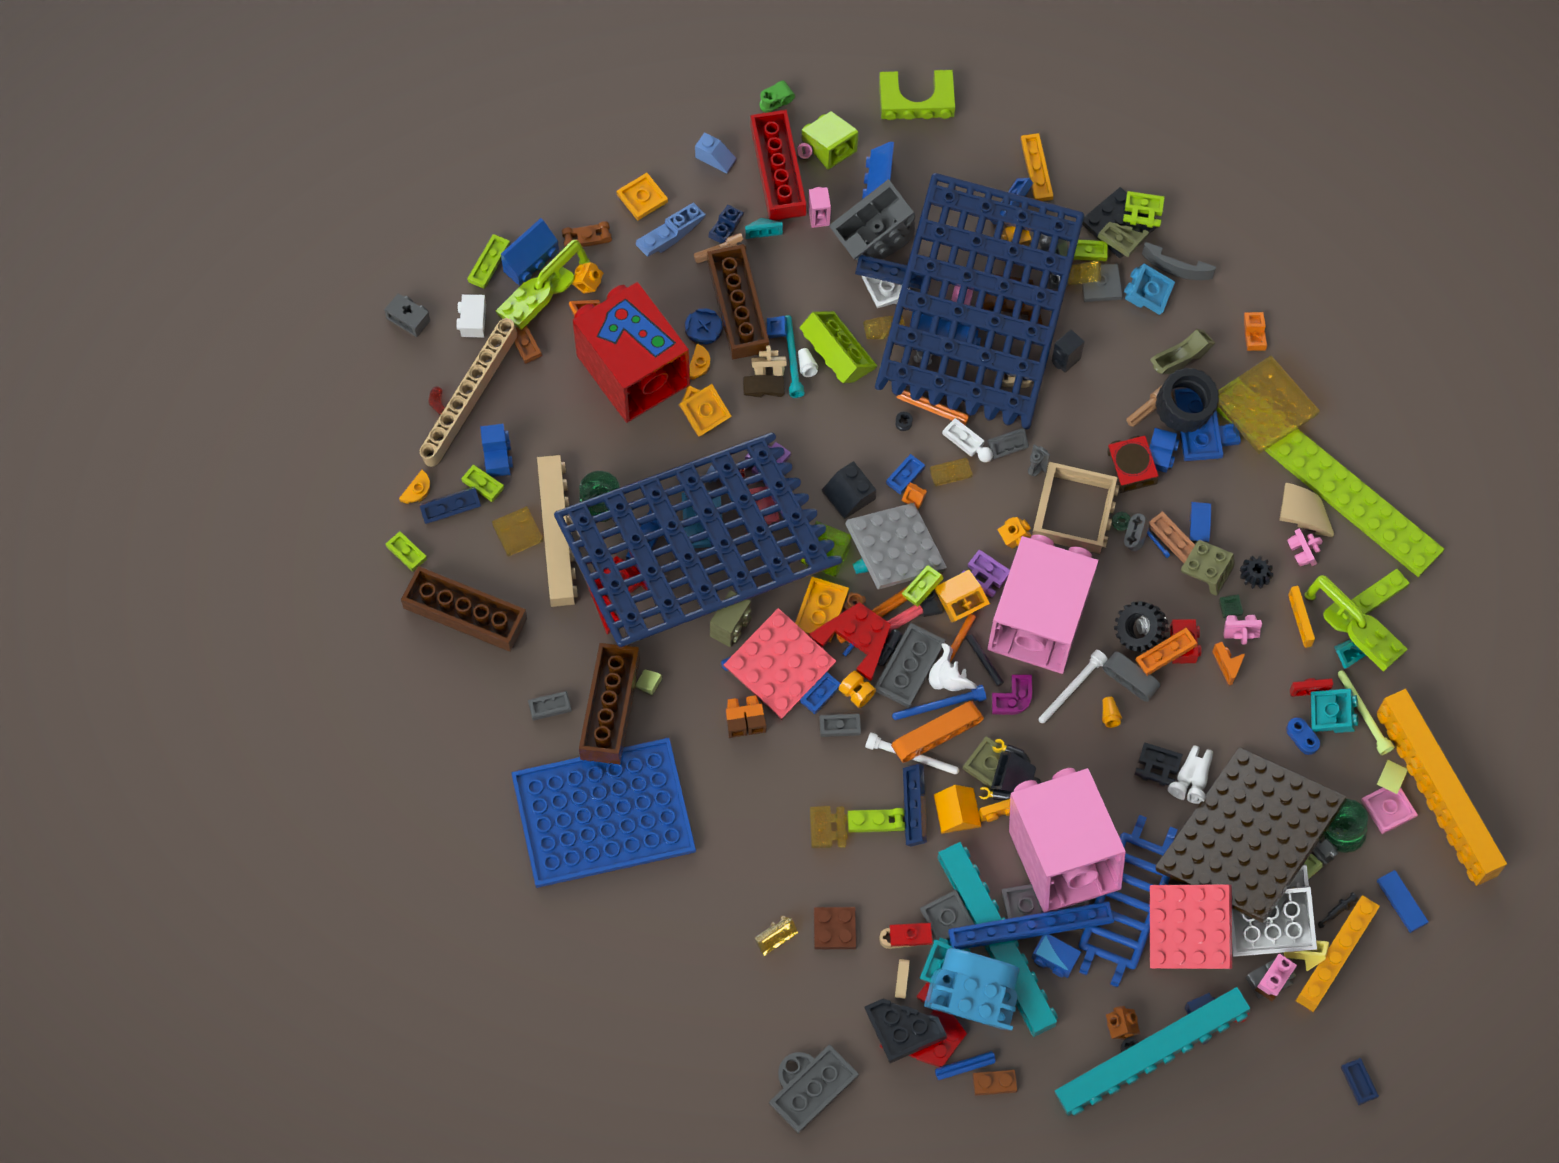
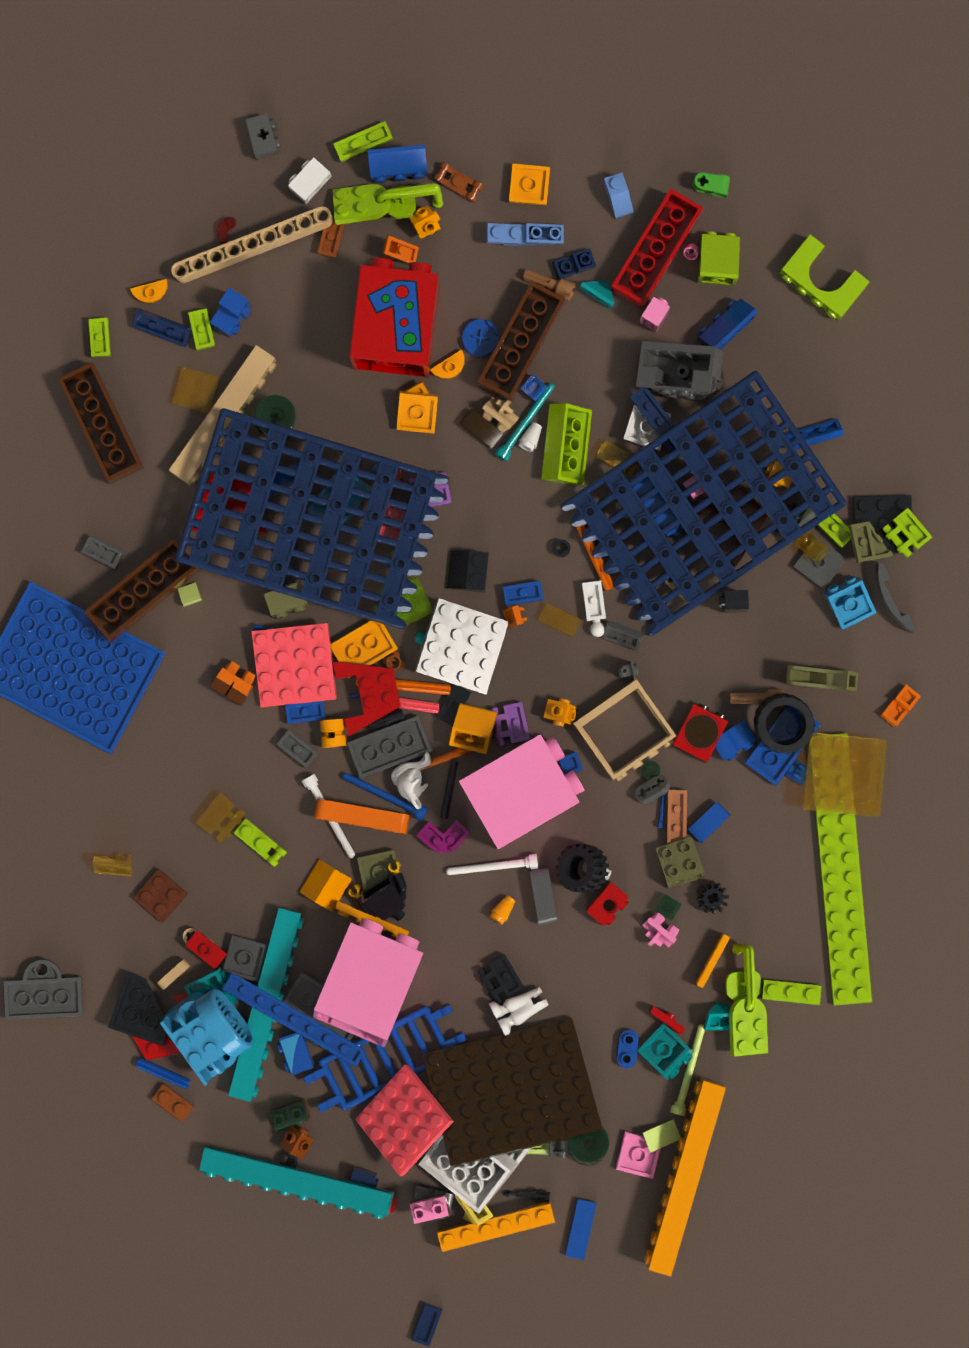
camera: 45 degrees right, 20 degrees up
(914, 805) = (296, 856): dark blue plate -> none
(922, 585) = (451, 696): lime plate -> none
(1037, 167) = (861, 422): light orange plate -> none
(1096, 1008) = (290, 1115): none -> clear green hips
(1166, 651) = (581, 904): orange plate -> none
(1228, 665) = (623, 954): orange slope -> none
(1305, 509) = (795, 882): tan slope -> none
(1306, 556) = (769, 902): bright pink hips -> none

